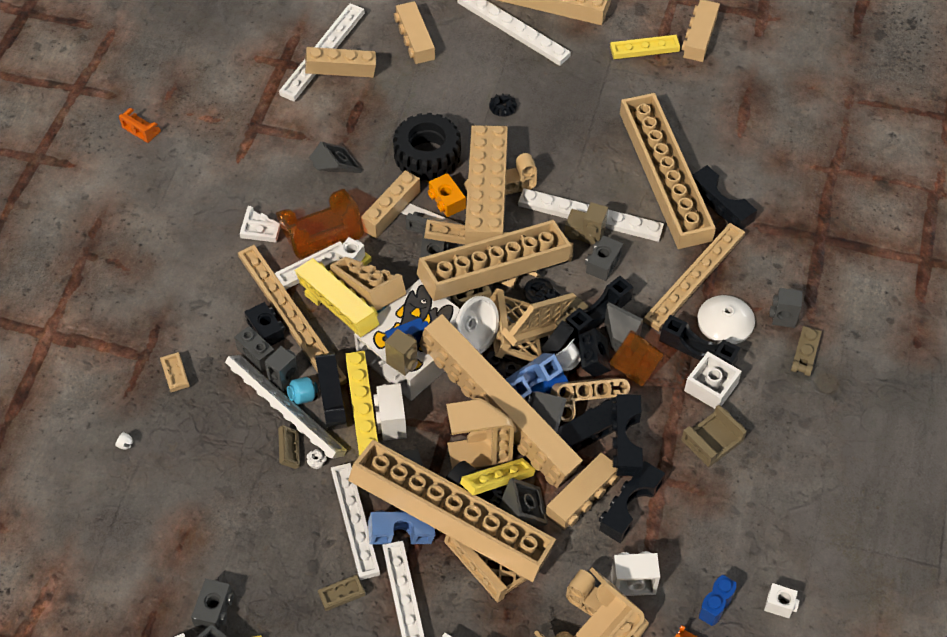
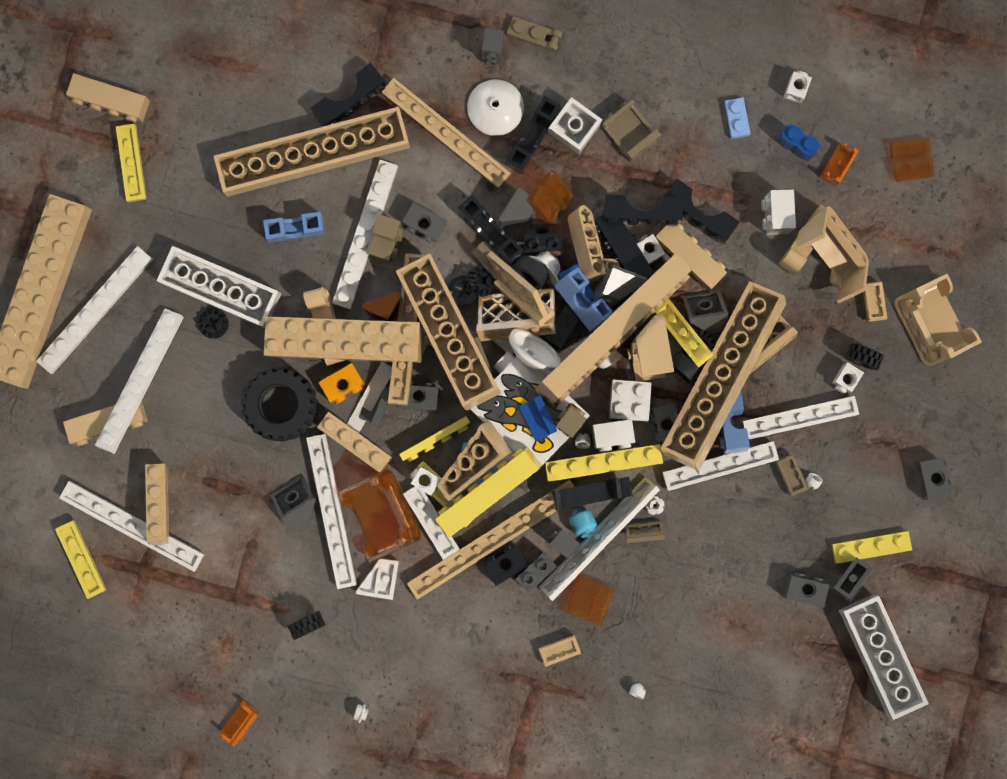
camera: 90 degrees left, 30 degrees up
(136, 212) = (360, 713): none -> white plate
(222, 167) = (306, 625): none -> black tyre
(222, 398) = (589, 600): none -> clear orange slope
(296, 19) = (80, 559): none -> light yellow plate
(323, 189) = (331, 511): none -> white plate
(337, 612) = (814, 481): none -> white hinge
(387, 260) = (428, 444): none -> light yellow plate
(427, 431) = (629, 400): none -> white brick
(450, 49) = (139, 381): none -> white plate
(518, 216) = (384, 307): none -> reddish brown slope
(535, 103) = (218, 286): none -> white brick
(591, 444) = (658, 251): none -> white brick
(594, 162) = (288, 229): none -> medium blue arch
(739, 541) = (737, 118): none -> light blue plate

